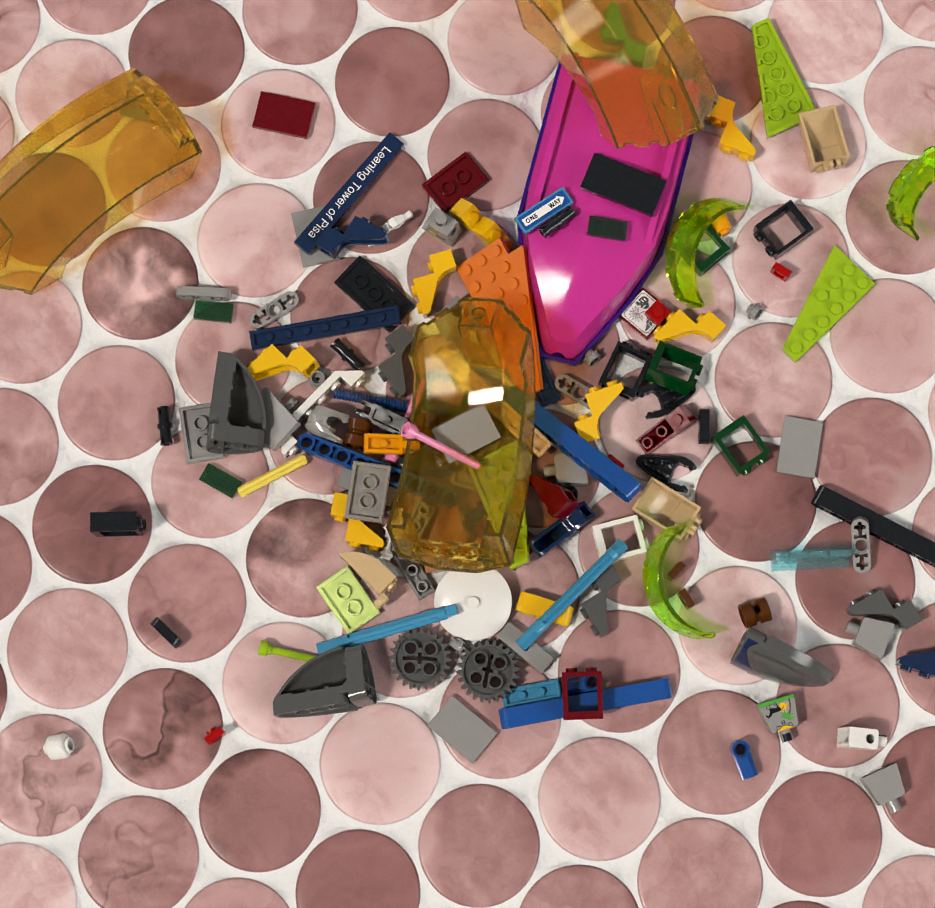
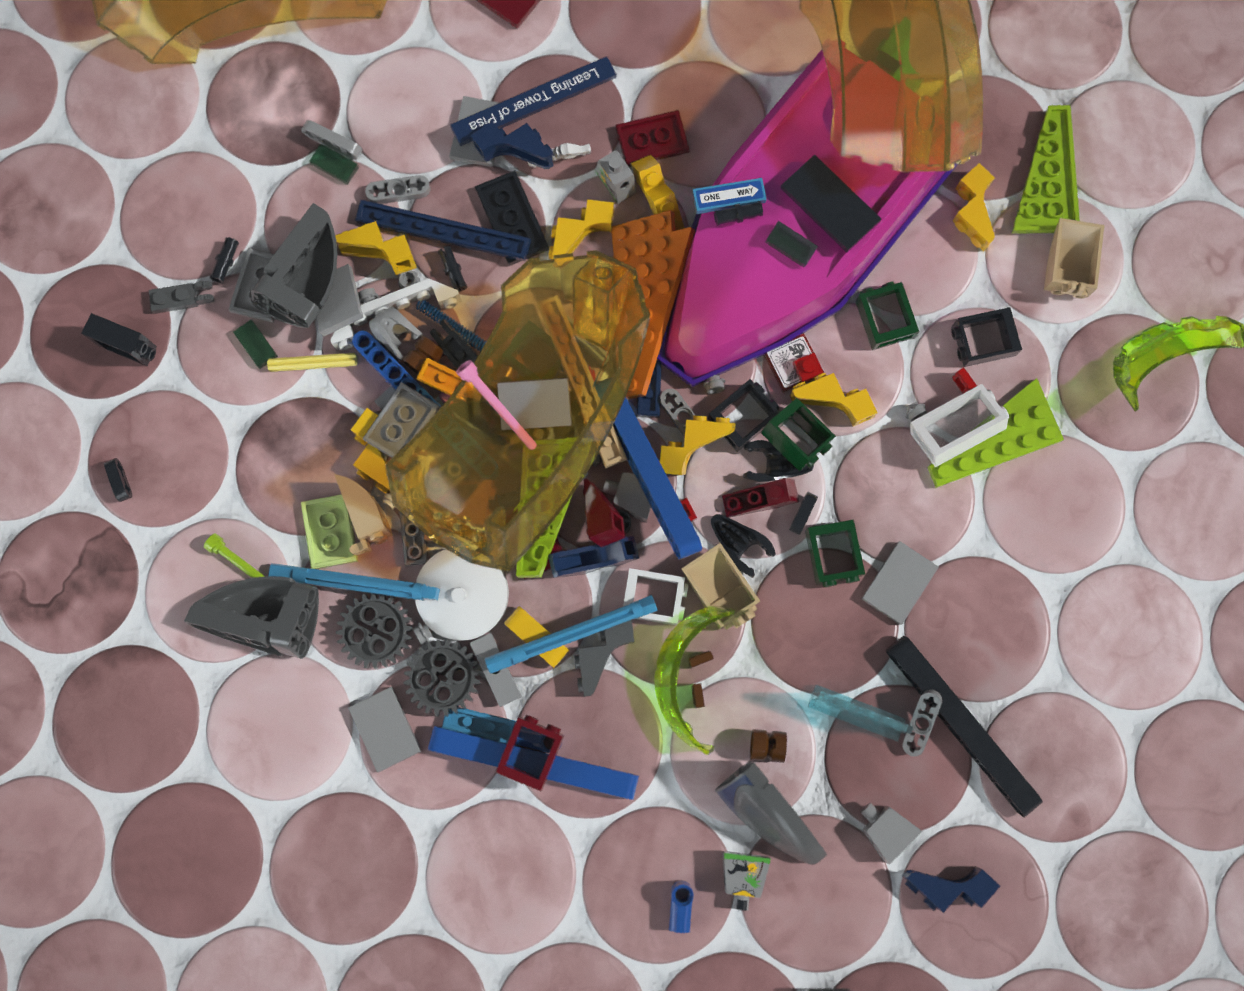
camera: 20 degrees right, 0 degrees up
(142, 470) = (179, 297): none -> dark grey hinge
(214, 735) = (114, 614): red plate -> none
(392, 369) = (491, 301): dark grey arch -> none
(683, 245) = (868, 304): clear neon green windscreen -> none
(721, 225) = (920, 298): light orange brick -> none
(791, 307) = (959, 425): none -> white window
(860, 738) = (824, 945): white torso -> none
(878, 605) = (911, 798): dark grey arch -> none

